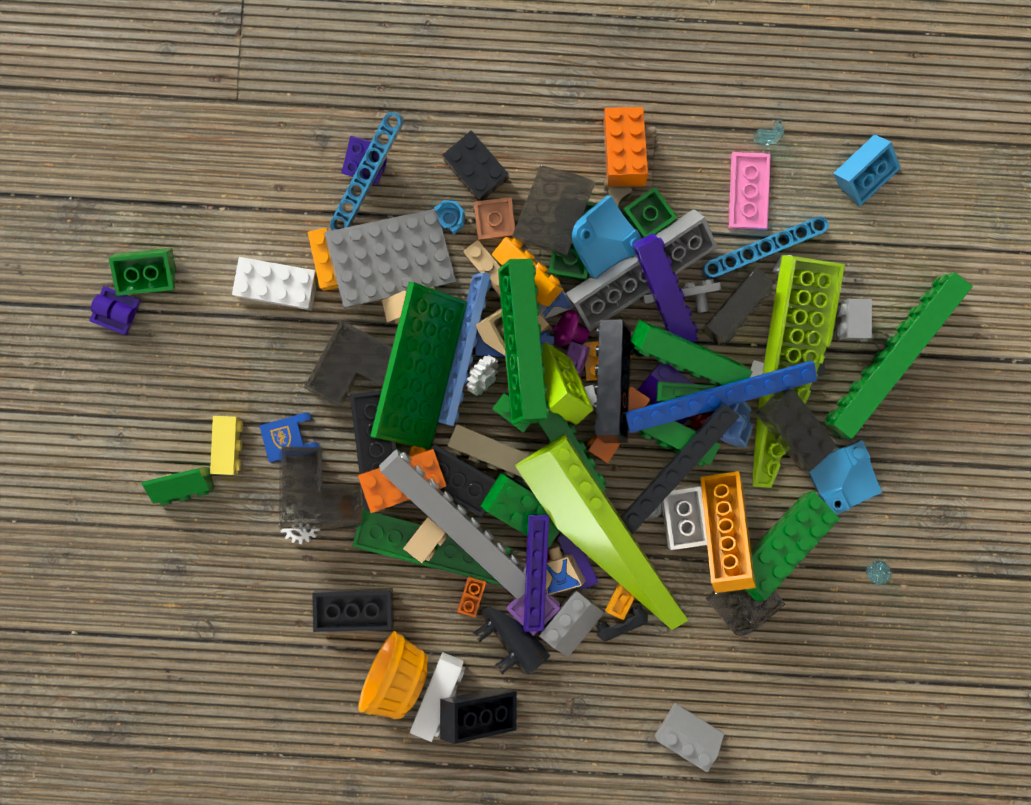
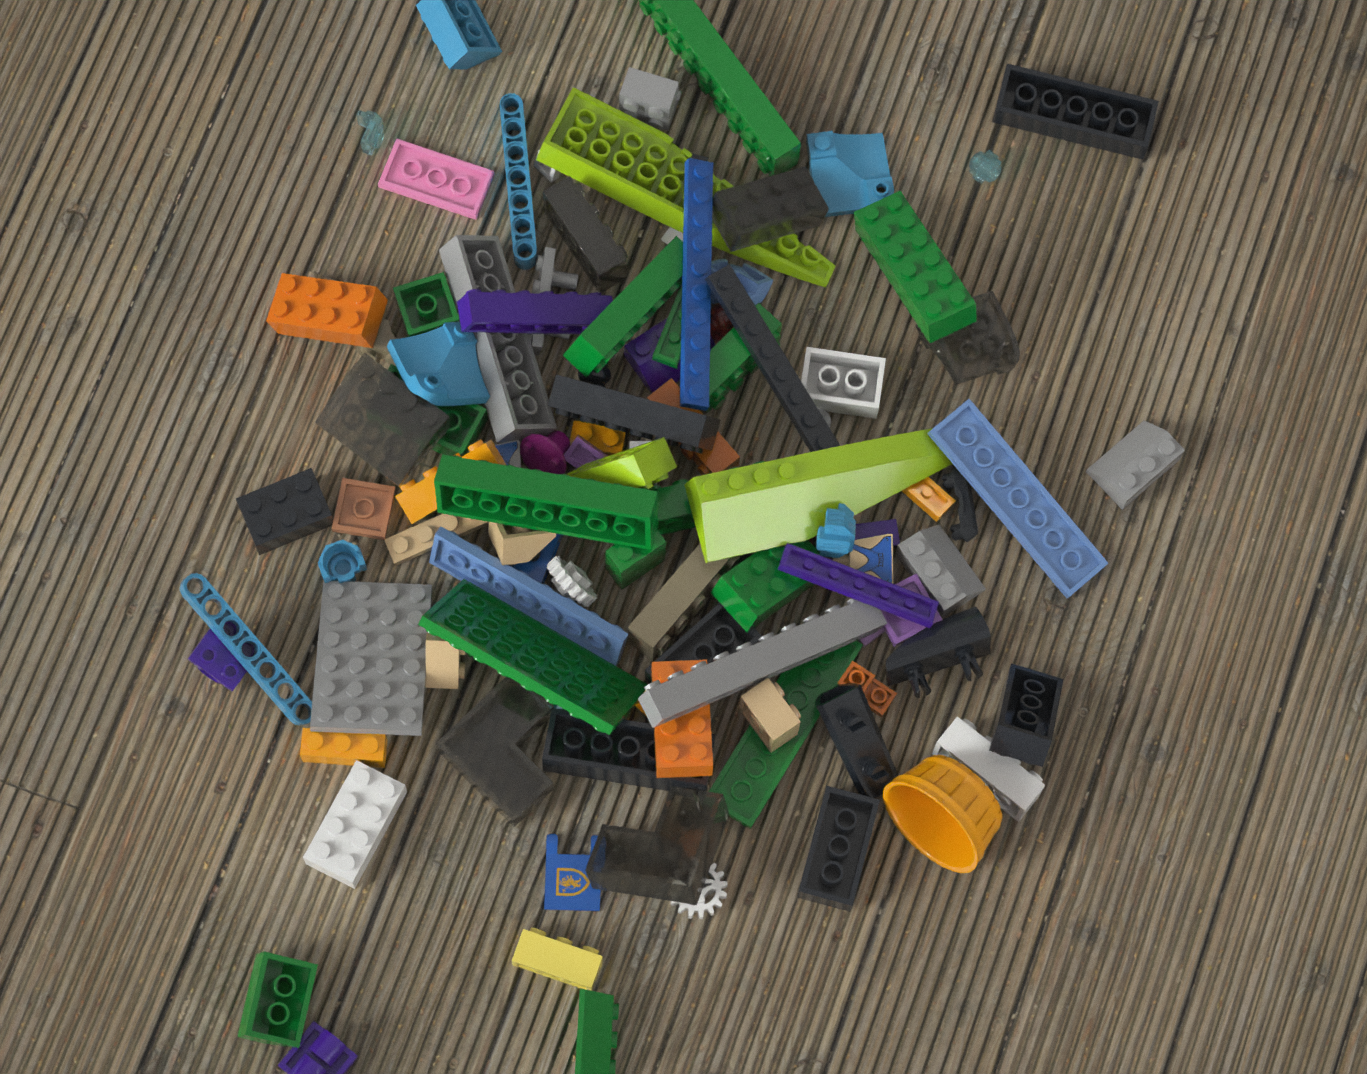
camera: 75 degrees left, 15 degrees down
(432, 600) = (857, 738): none -> black piece
(569, 549) = (838, 533): none -> dark azure hair
(636, 663) = (1018, 498): none -> medium blue plate
(727, 532) = (874, 325): light orange brick -> none
(941, 626) = (1075, 111): none -> black brick

